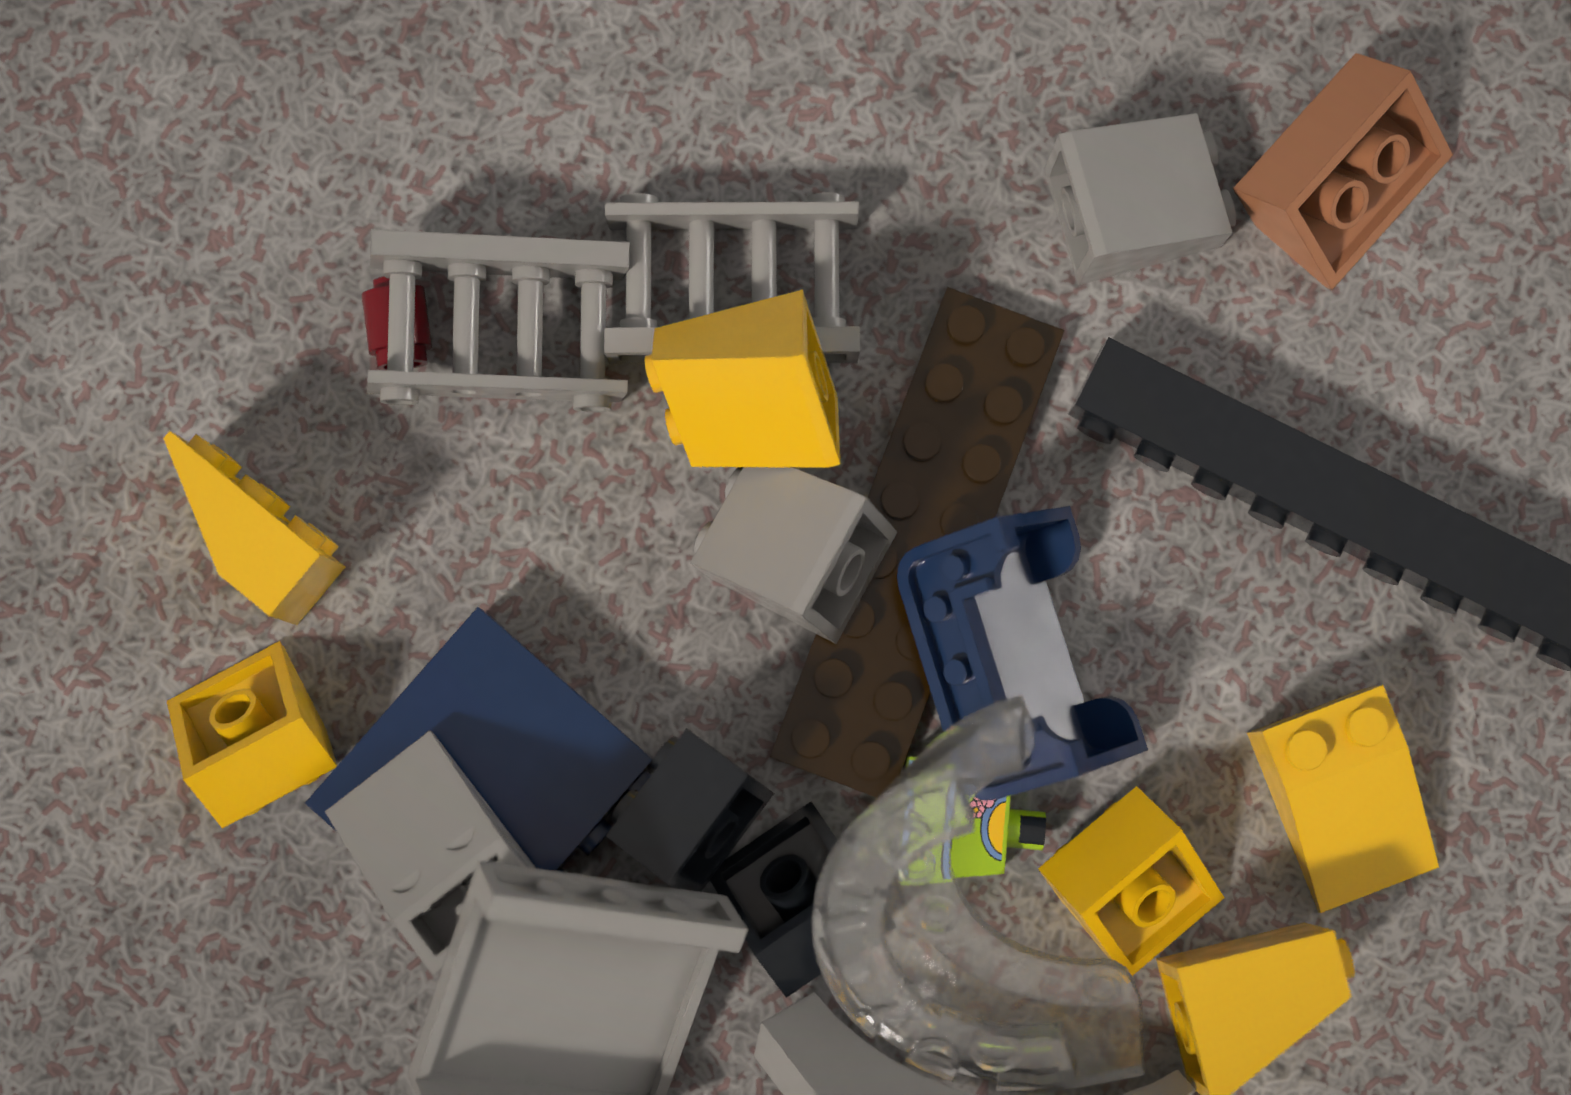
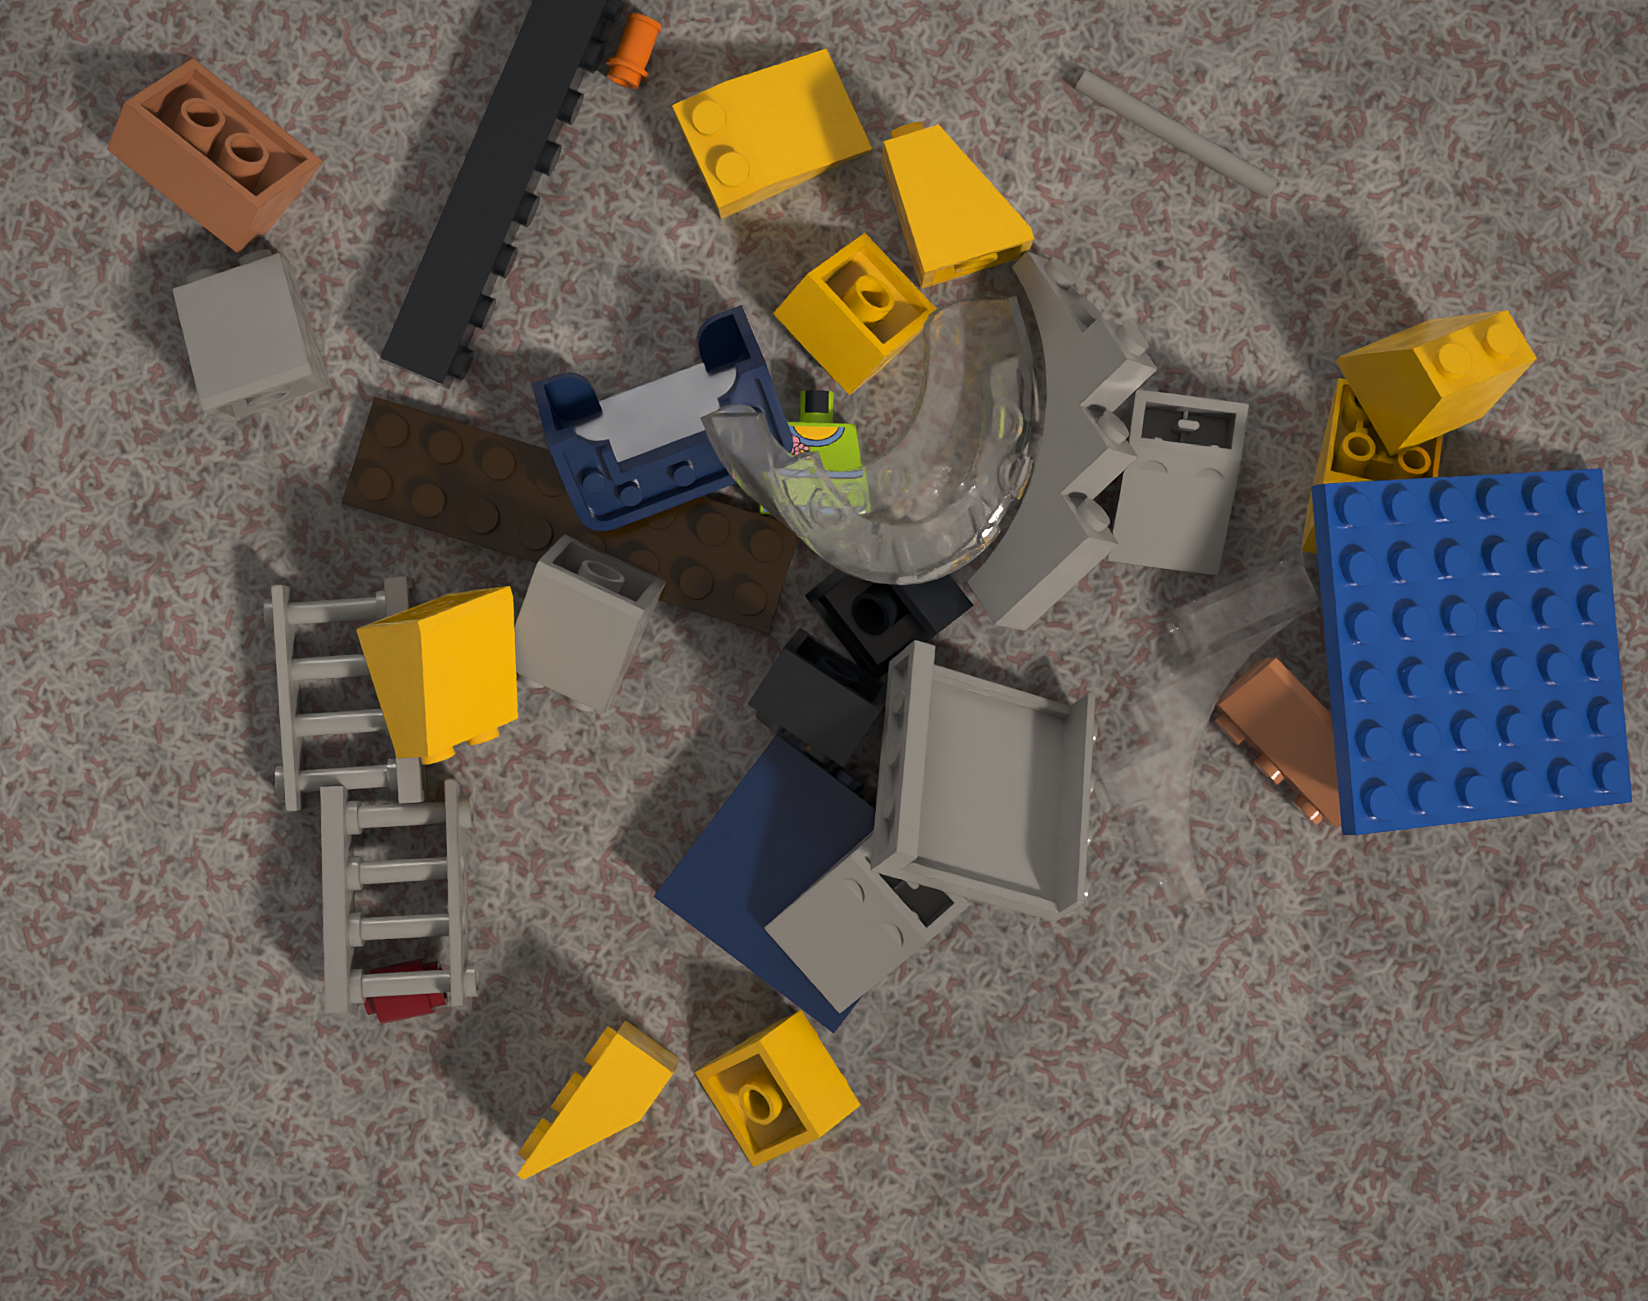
camera: 90 degrees left, 5 degrees up
(1441, 644) = (633, 51): none -> orange pin

